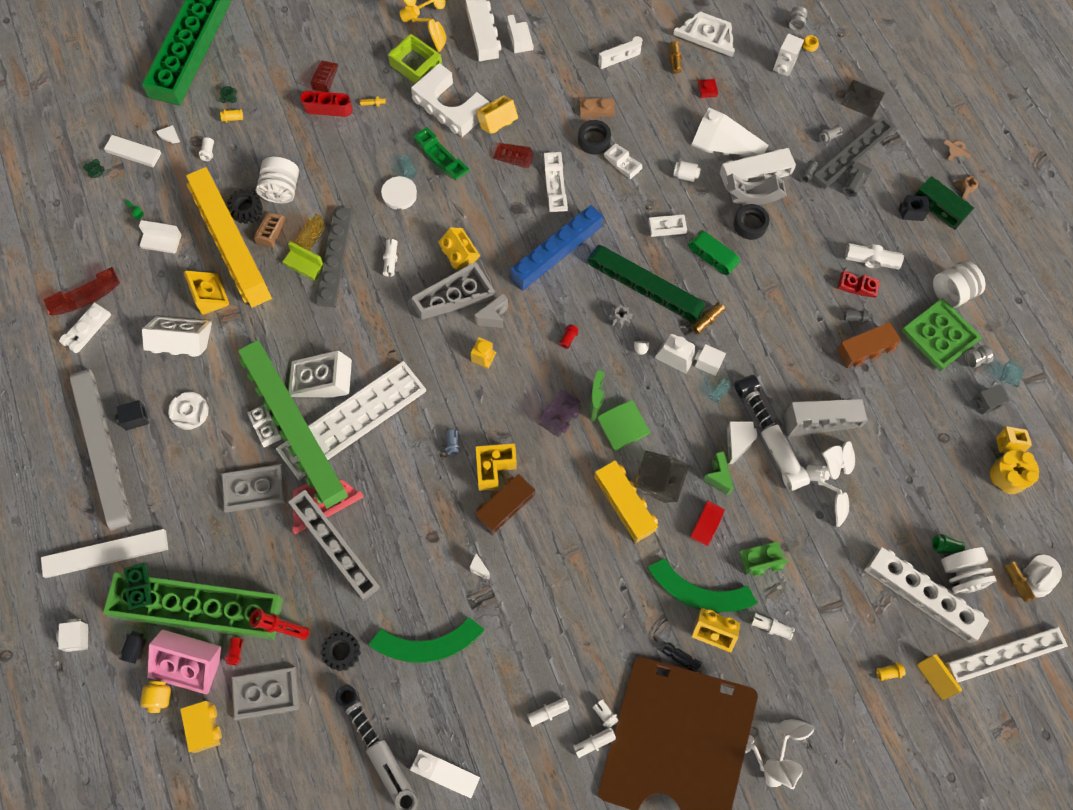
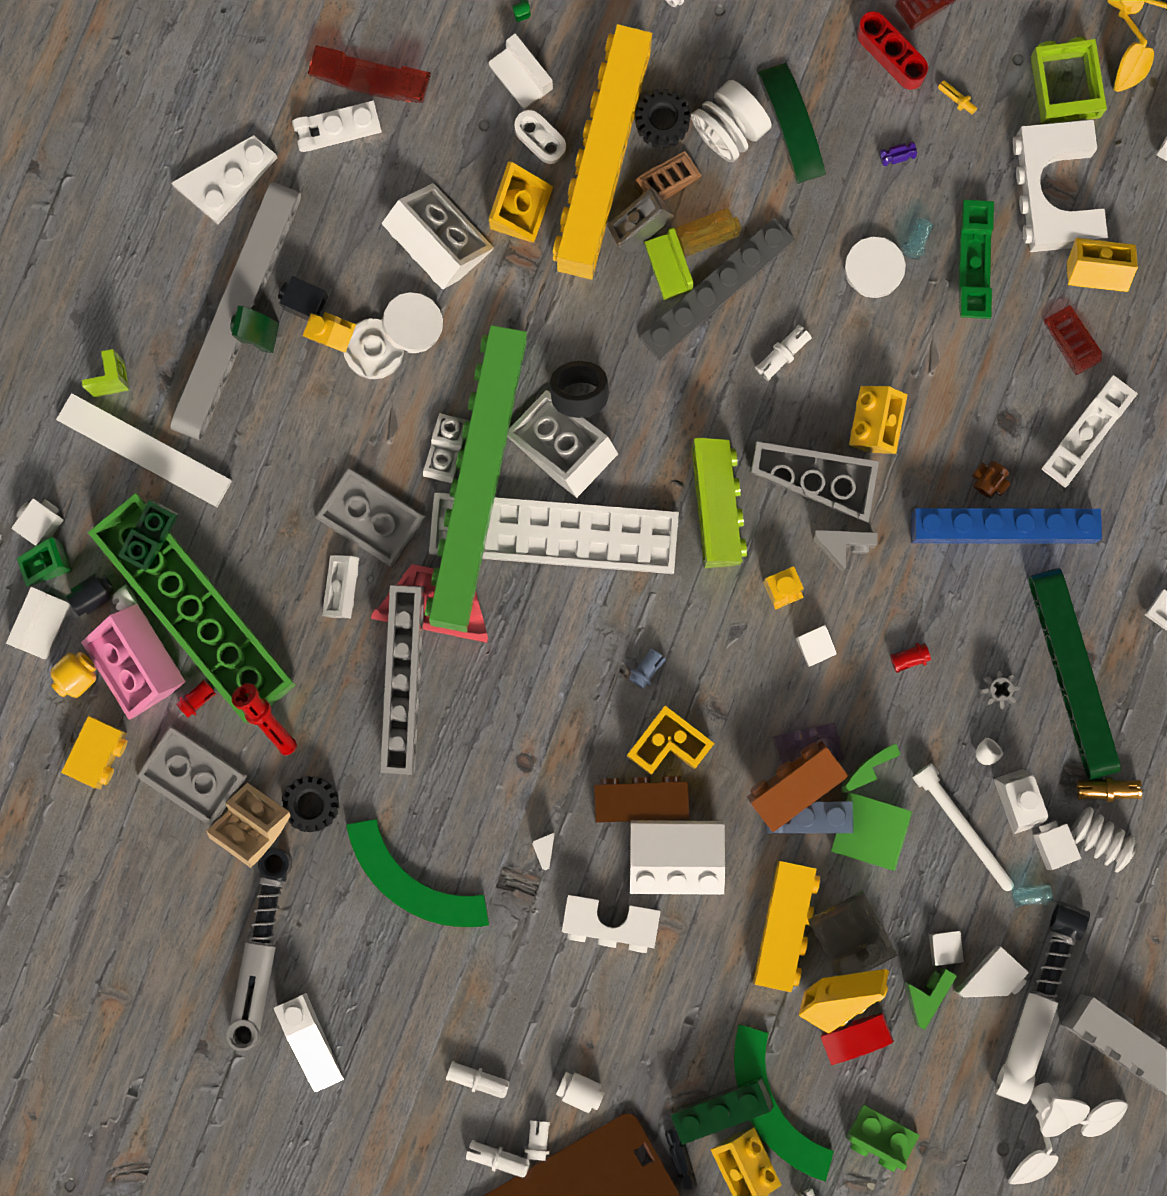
camera: 45 degrees right, 15 degrees up
(45, 394) = (226, 178): none -> white wing
(56, 533) = (115, 376): none -> lime panel
(92, 653) = (44, 562): none -> green slope
(114, 688) = (38, 623): none -> white panel
(116, 445) = (254, 328): none -> dark green slope
(151, 633) = (124, 598): none -> white hinge
(157, 418) = (329, 331): none -> yellow brick
(193, 256) = (541, 137): none -> white plate
(197, 382) = (412, 322): none -> white tile
(265, 531) = (340, 586): none -> white plate
(272, 253) = (640, 221): none -> flat silver slope
(298, 344) = (580, 405): none -> black tyre
(310, 163) = (793, 122): none -> dark green slope
(316, 689) = (249, 825): none -> tan slope
(367, 141) = (898, 153): none -> dark purple piece
(417, 342) = (717, 502): none -> lime slope
(521, 366) = (816, 645): none -> white slope
(529, 585) = (637, 930): none -> white arch
(532, 234) = (991, 479): none -> reddish brown gear
(545, 512) = (677, 857): none -> white slope
(570, 429) = (796, 785): none -> dark orange brick
(590, 442) = (820, 819): none -> sand blue plate
(603, 669) = (580, 1092): none -> white brick
(627, 381) = (929, 780): none -> white piece
(679, 612) = (722, 1110): none -> dark green brick
(682, 508) = (840, 998): none -> yellow slope
(706, 447) = (946, 948): none -> white slope
(727, 337) = (1104, 839): none -> white piece

